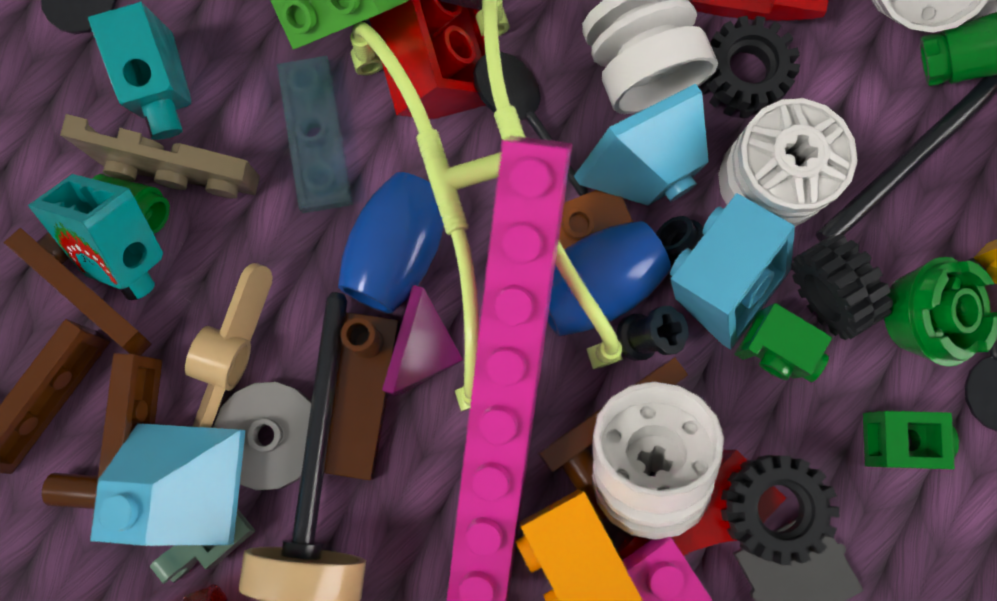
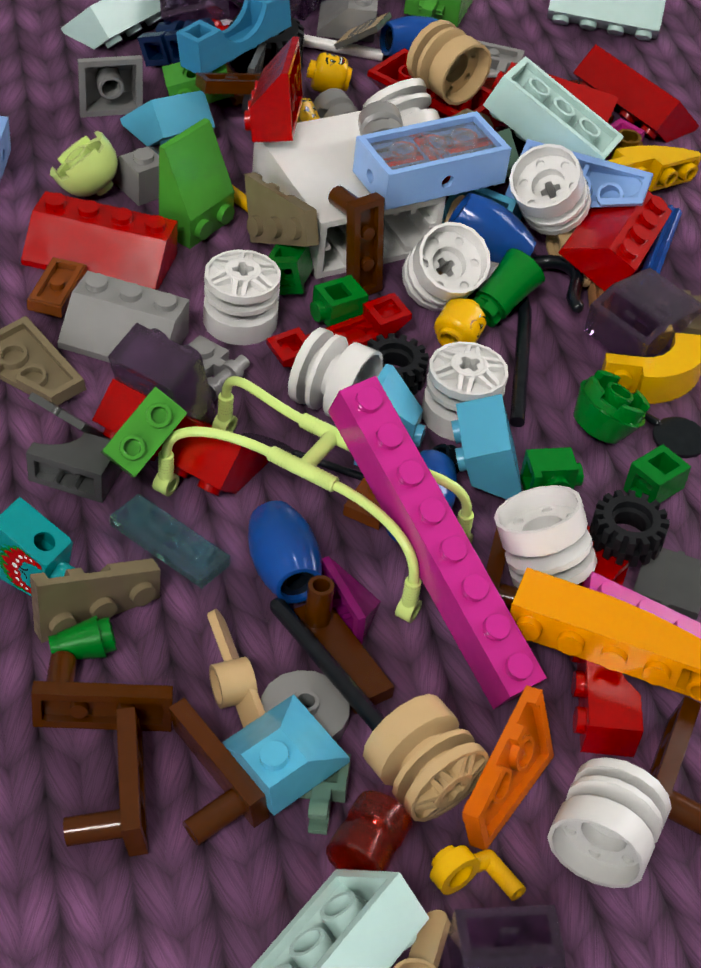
camera: 45 degrees left, 35 degrees down
(101, 232) = (98, 641): teal torso -> none
(659, 332) = (483, 501): black bush -> none
(841, 286) = (551, 409): black tyre -> none
(882, 59) = (460, 321): none -> yellow head

